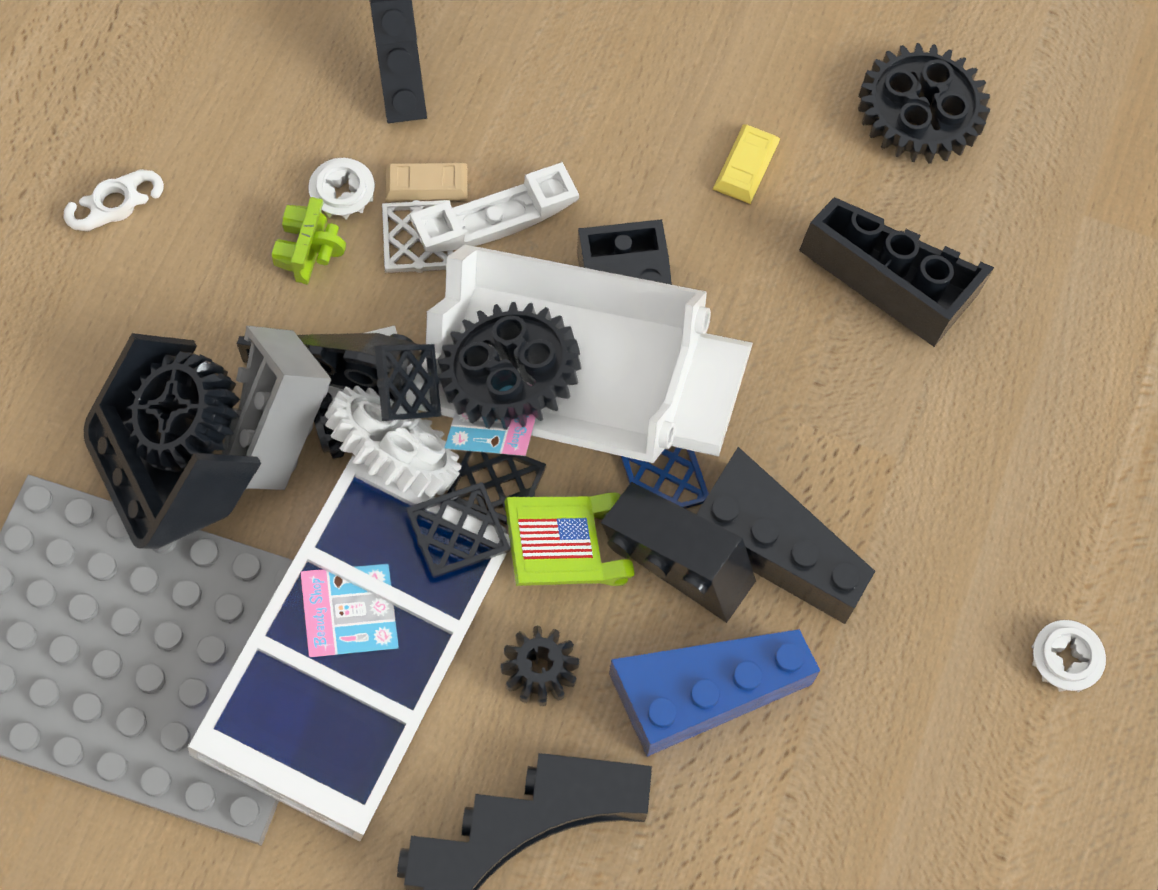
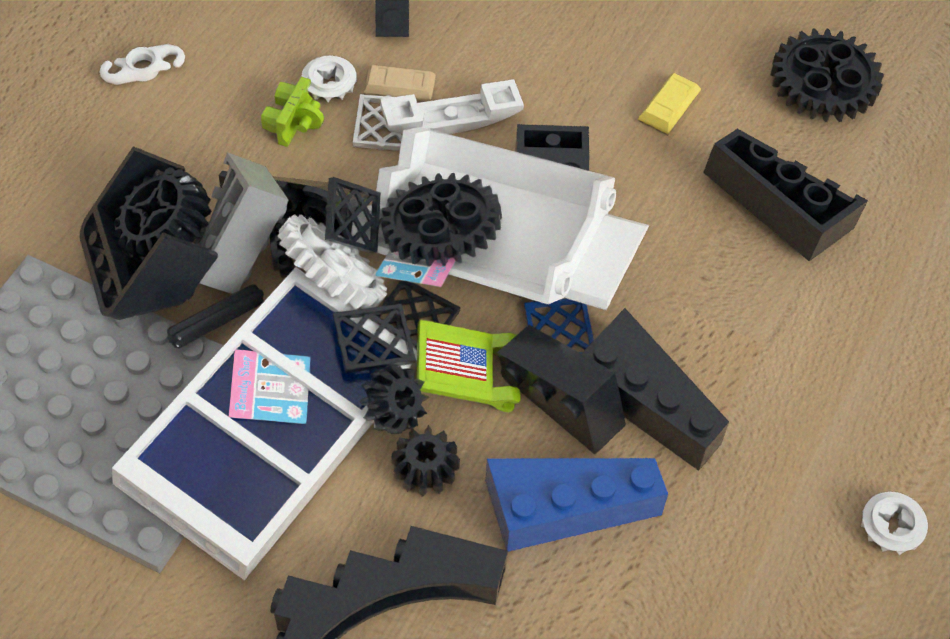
camera: 10 degrees right, 10 degrees down
(265, 523) = (215, 316): none -> black axle
(494, 605) = (394, 399): none -> black gear

